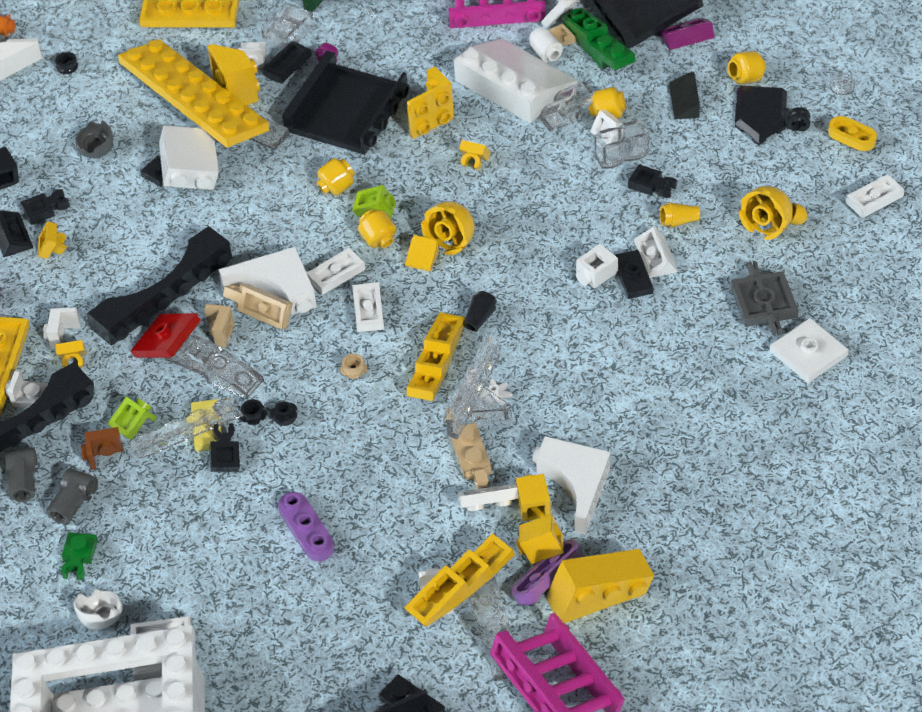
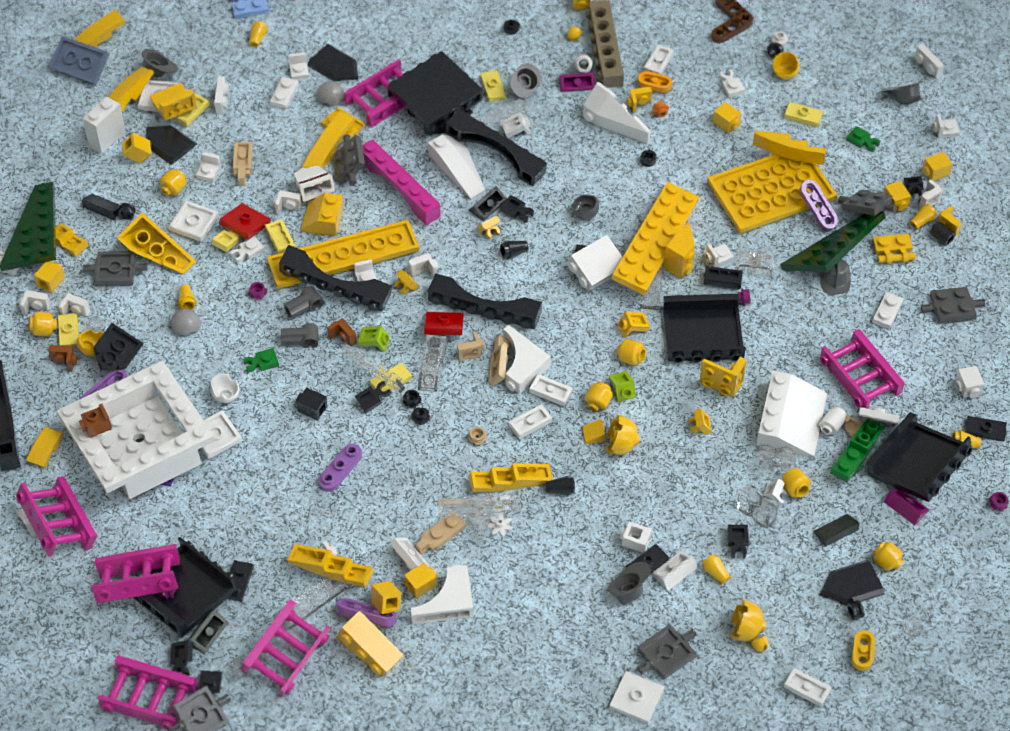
camera: 60 degrees right, 5 degrees up
(100, 232) = (513, 248): none -> black cone
(189, 519) = (311, 403): none -> black brick
(293, 163) = (633, 322): none -> yellow bracket
(656, 290) = (629, 583): none -> dark grey piece

